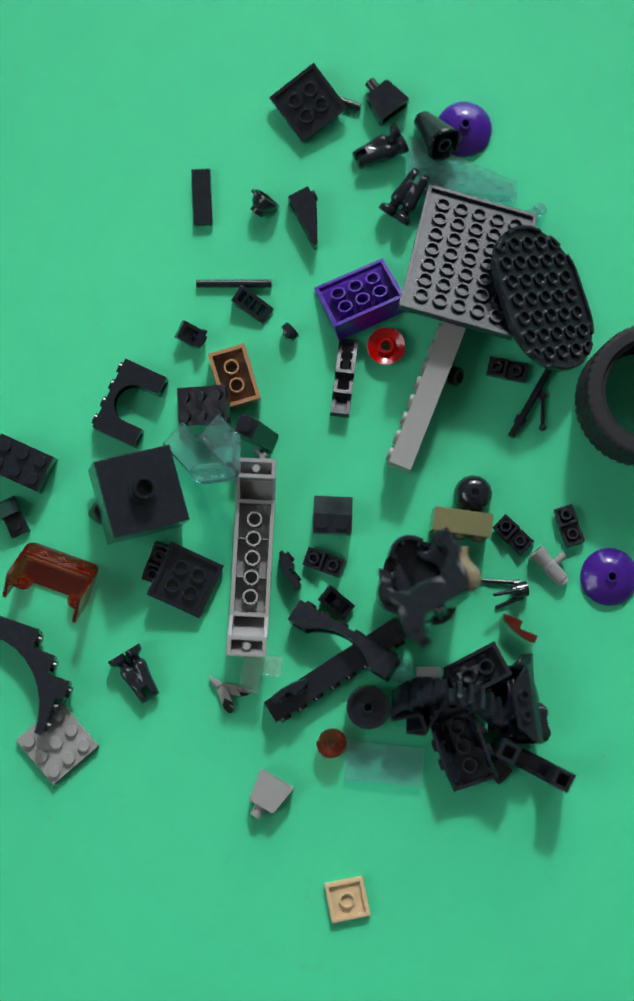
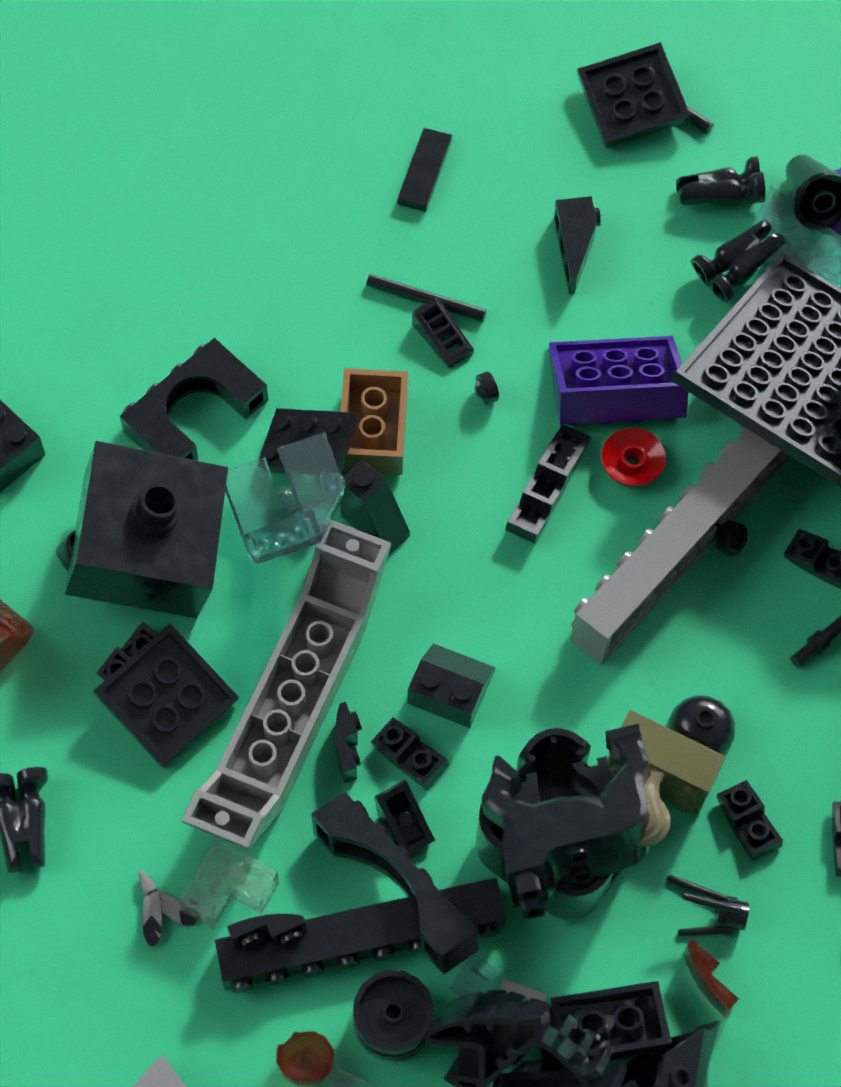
camera: 20 degrees right, 20 degrees down
(191, 334) = (330, 342): black bracket -> none
(262, 203) = (513, 202): black piece -> none
(385, 100) = (752, 127): black torso -> none
(549, 565) = (798, 893): light grey piece -> none

